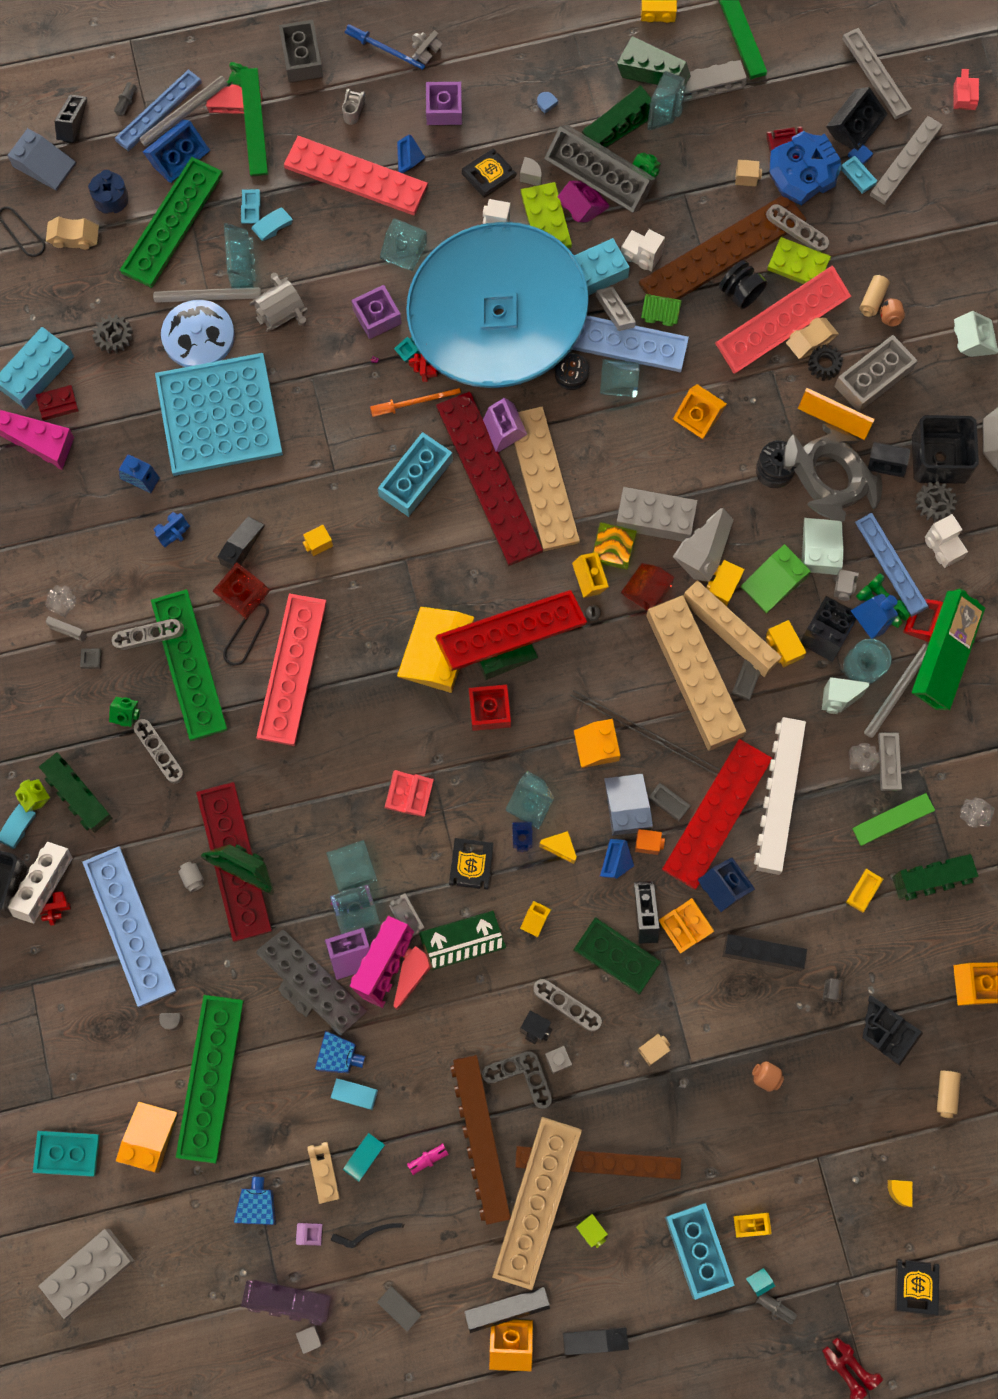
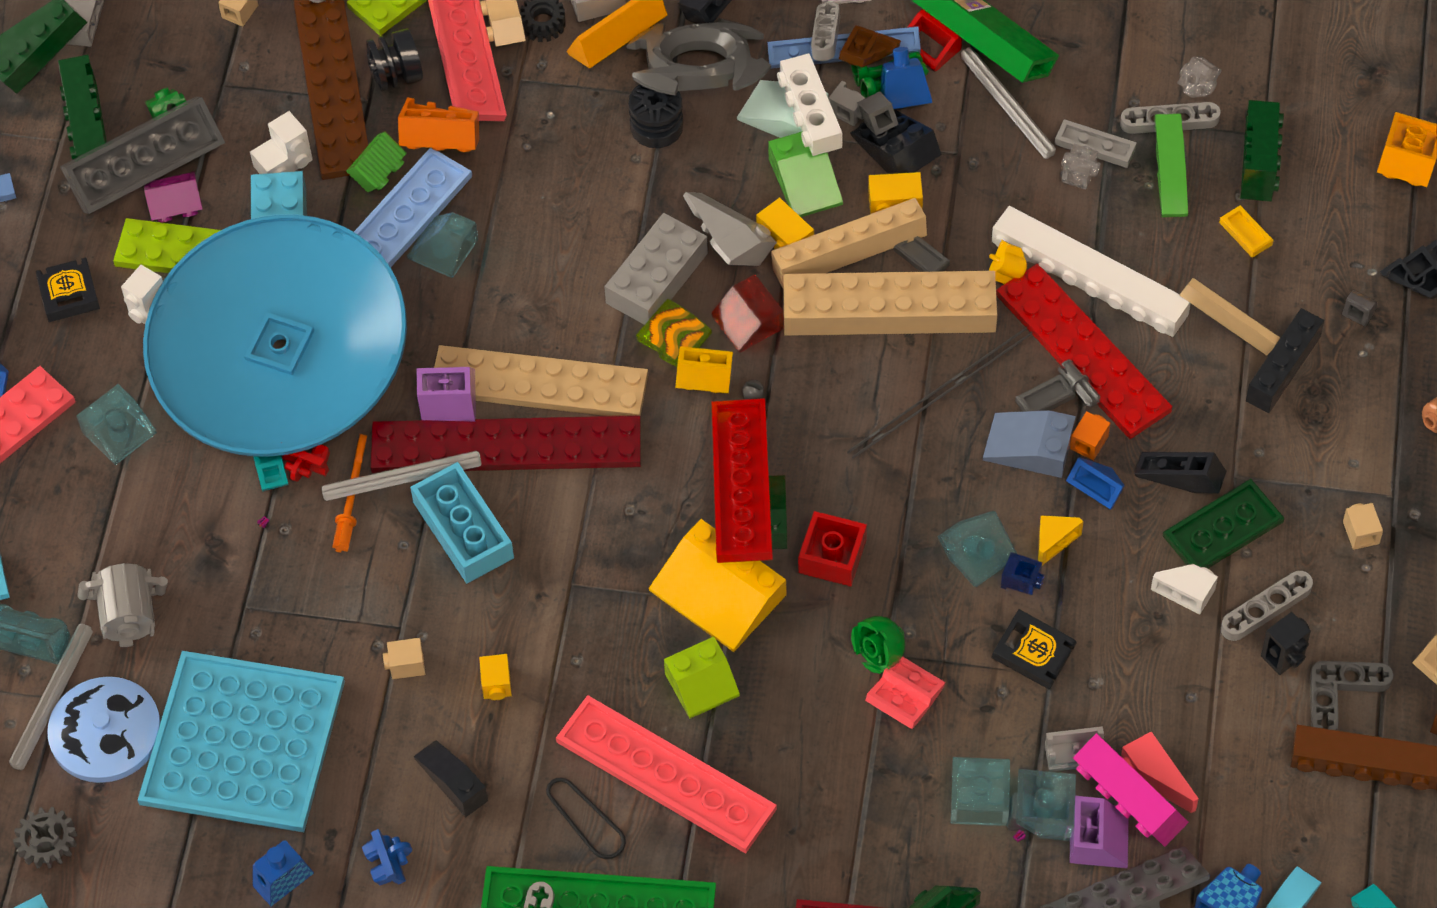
camera: 65 degrees left, 15 degrees down
(241, 590) = (525, 794): clear red brick -> none
(309, 482) = (404, 658): none -> tan brick
(366, 663) = (701, 677): none -> lime slope
(376, 311) = (200, 488): medium lavender brick -> none
(427, 1159) = (1410, 839): dark pink pin -> none
(434, 424) = (398, 476): none -> light grey axle
(434, 764) = (878, 642): none -> green cylinder
(462, 940) = (1136, 691): dark green tile -> none
(530, 172) = (96, 239): light grey brick -> none
(535, 918) = (1139, 599): yellow brick -> none
(558, 948) = (1186, 586): none -> white slope
(558, 1060) = (1336, 637): light grey brick -> none
(572, 372) = (415, 291): black head -> none
(597, 743) = (934, 445): light orange slope -> none
(615, 308) = (353, 209): light grey plate -> none
(666, 101) = (91, 37): clear light blue slope -> none
(686, 820) = (1079, 383): none -> dark grey axle
(686, 925) = (1216, 432): light orange slope -> none
(699, 411) = (538, 172): light orange slope -> none
(700, 332) = (437, 127): none -> orange wedge
(726, 884) = (1181, 372): dark blue slope -> none
(761, 738) = (1008, 262): none -> yellow piece
(780, 902) = (1229, 316): none -> tan tile
(800, 579) = (810, 104): none -> white brick
(840, 606) = (878, 113): none -> dark grey brick
(841, 694) = (990, 156): light aqua slope -> none
(874, 654) = (961, 114): clear light blue wheel -> none
(891, 577) = (867, 47): none -> reddish brown wing
(893, 543) = (825, 31): none -> light grey beam
(940, 803) = (1190, 109): none -> light grey beam

